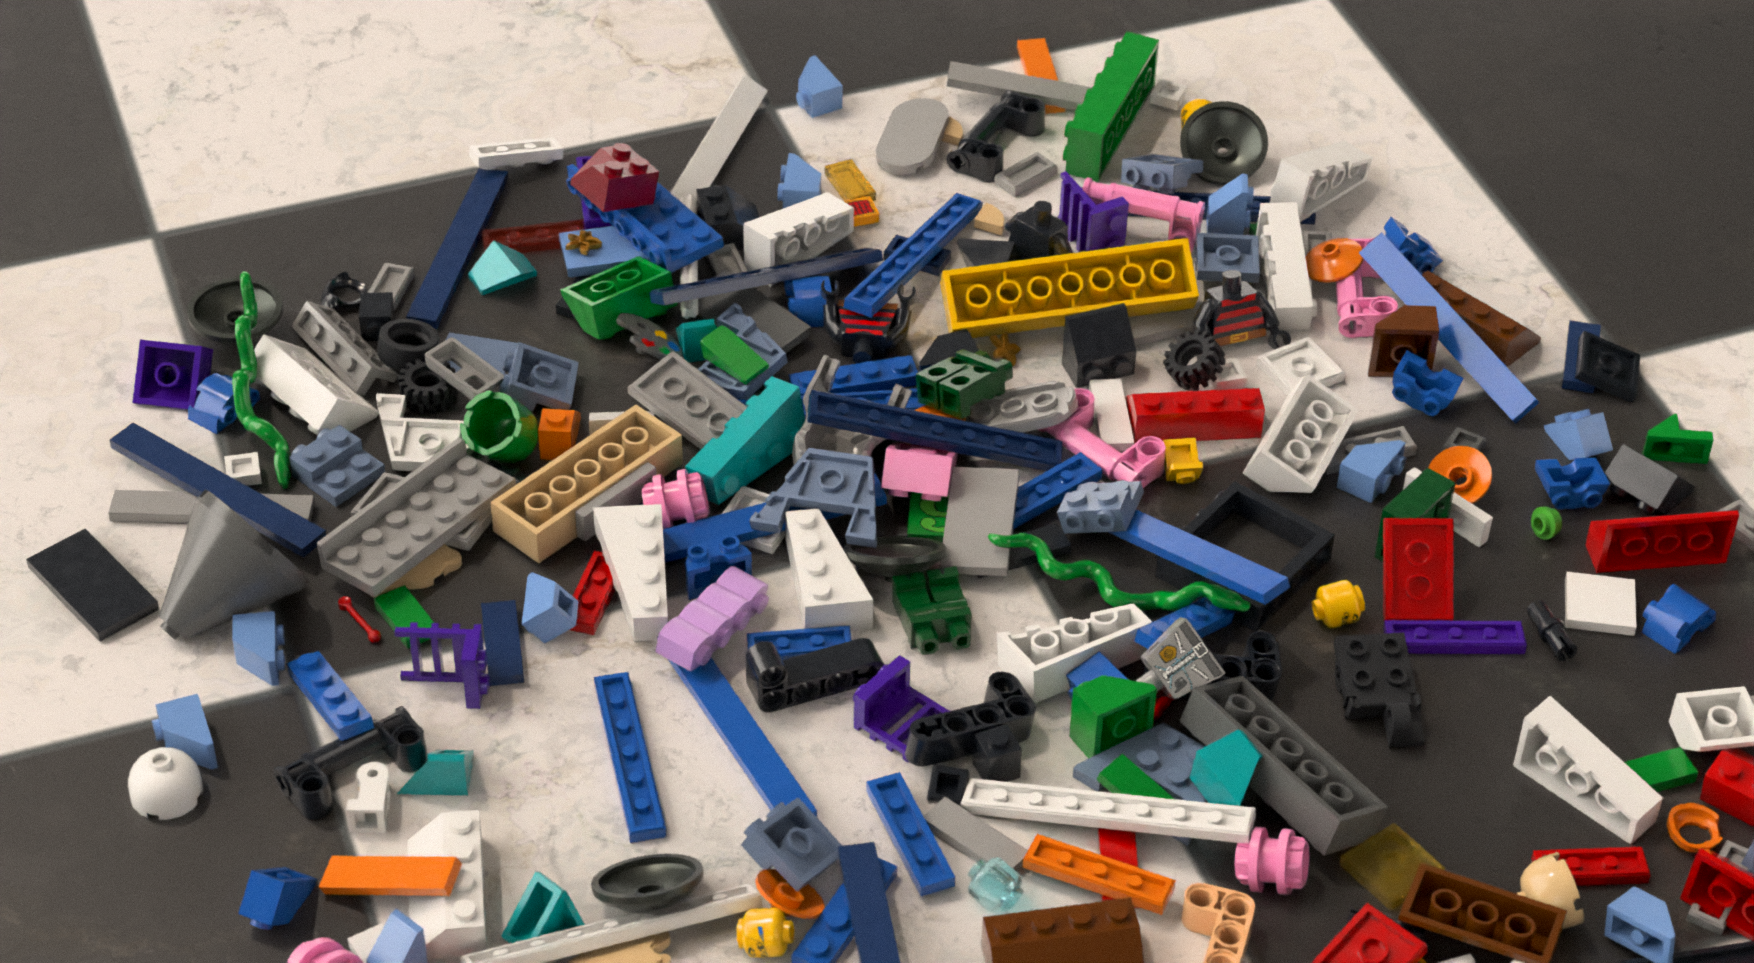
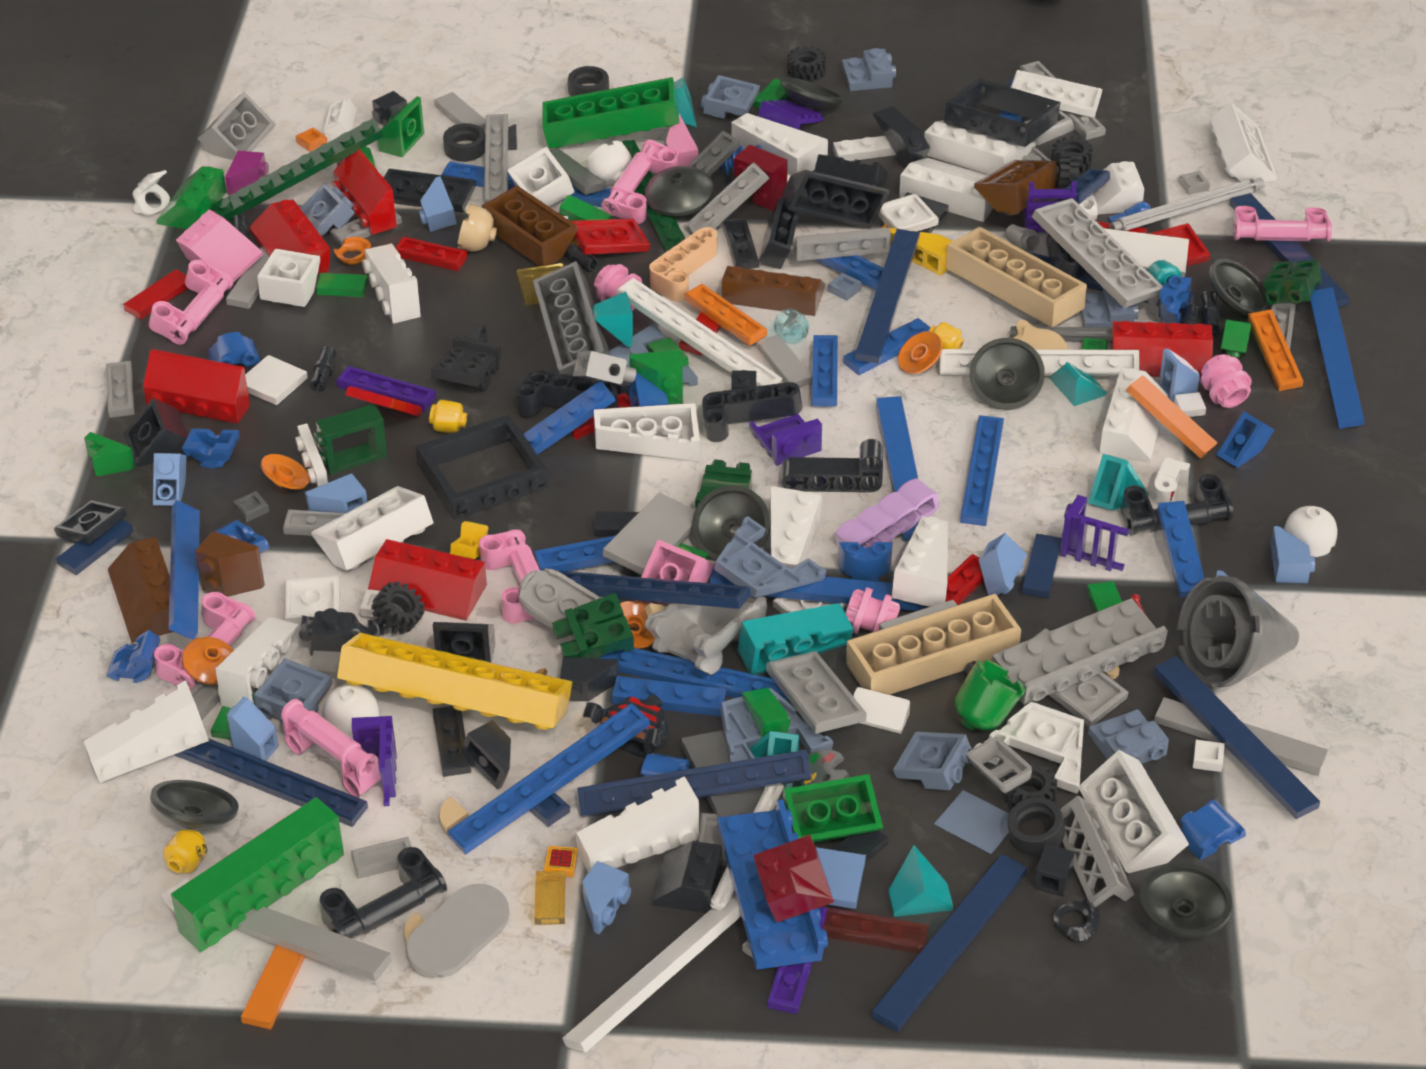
camera: 155 degrees left, 0 degrees up
(92, 584) = (1347, 699): black tile -> none
(170, 373) = (1252, 866): dark purple slope -> none
(247, 375) = (1195, 791): green animal -> none
(393, 279) = (1031, 914): light grey tile -> none
(516, 153) = (856, 1022): white plate -> none
(557, 432) = (935, 708): orange slope -> none
(583, 242) = (842, 873): pearl gold plant -> none
(792, 843) = (906, 371): sand blue plate -> none
(801, 641) = (839, 506): blue tile -> none
(818, 89) = (515, 1014): medium blue slope -> none
(1038, 232) = (442, 742): black torso -> none
(1100, 507) = (560, 513): sand blue plate -> none
(1109, 592) = (532, 427): green animal -> none
(1111, 413) = (489, 600): white tile -> none
(1159, 171) = (269, 795): sand blue plate -> none
(1204, 558) = (535, 452): tile -> none
(1546, 522) = (256, 430): bright green plate -> none

